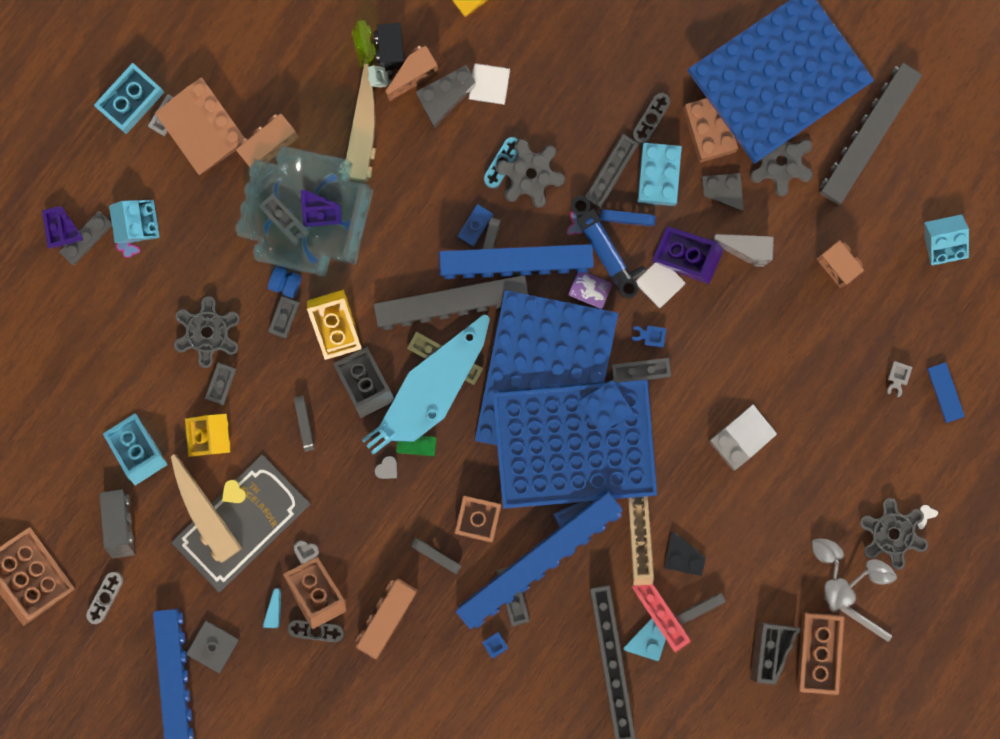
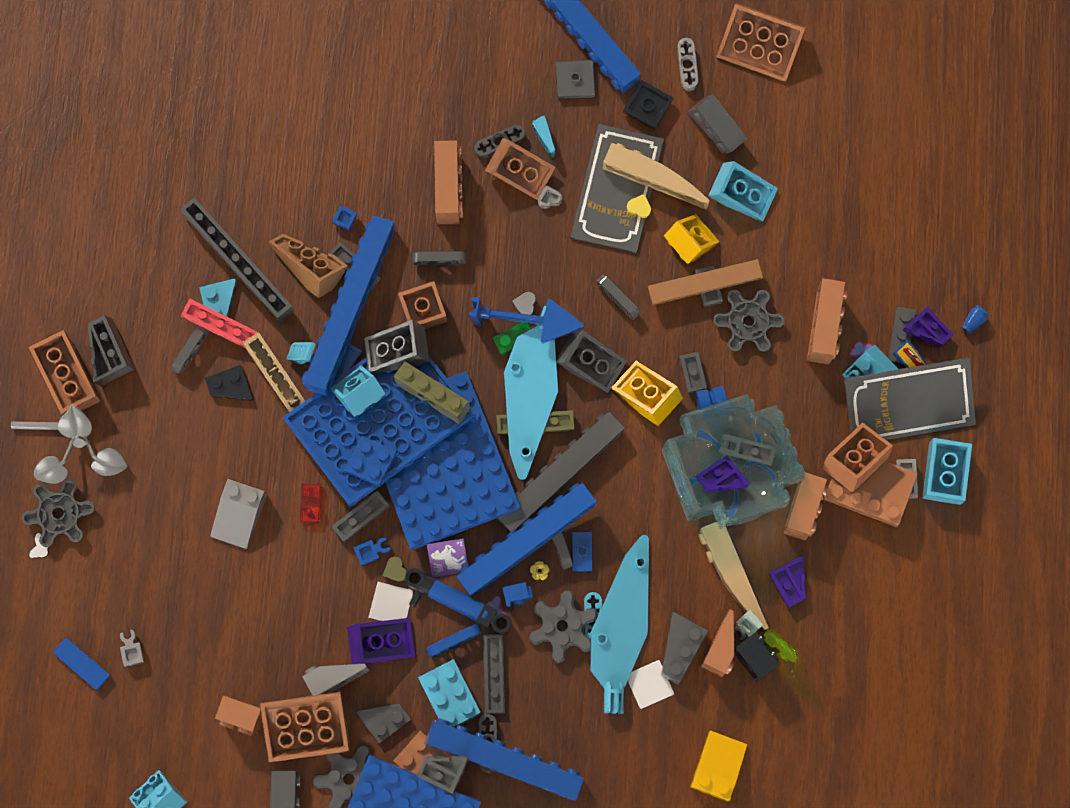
camera: 150 degrees right, 10 degrees down
(15, 211) = (975, 318): none -> blue cone
(93, 210) = (908, 355): none -> slope
(119, 174) = (912, 399): none -> dark grey piece
(142, 287) = (826, 320): none -> nougat brick
(164, 581) = (648, 105): none -> black plate
(197, 153) = (857, 457): none -> nougat brick
(222, 387) = (705, 282): none -> medium nougat tile
(320, 92) = (790, 582): none -> dark purple wing
(373, 430) = (555, 323): none -> blue piece
(482, 143) = (621, 626): none -> medium azure wing
(518, 432) = (432, 392): none -> olive brick
(520, 236) = (534, 570): none -> light yellow plate
(523, 493) = (395, 346): none -> dark grey slope
(550, 616) = (313, 269): none -> medium nougat wedge
(551, 222) = (517, 594): none -> blue brick
(579, 476) = (358, 391): none -> medium azure slope
(606, 543) = (300, 352): none -> medium azure slope
(640, 307) = (394, 570): none -> olive tile
(648, 93) = (503, 760): none -> blue brick
(675, 409) = (310, 502): none -> clear red slope
(703, 111) = (443, 771): none -> dark grey wing
(794, 218) = (305, 727): none -> nougat slope

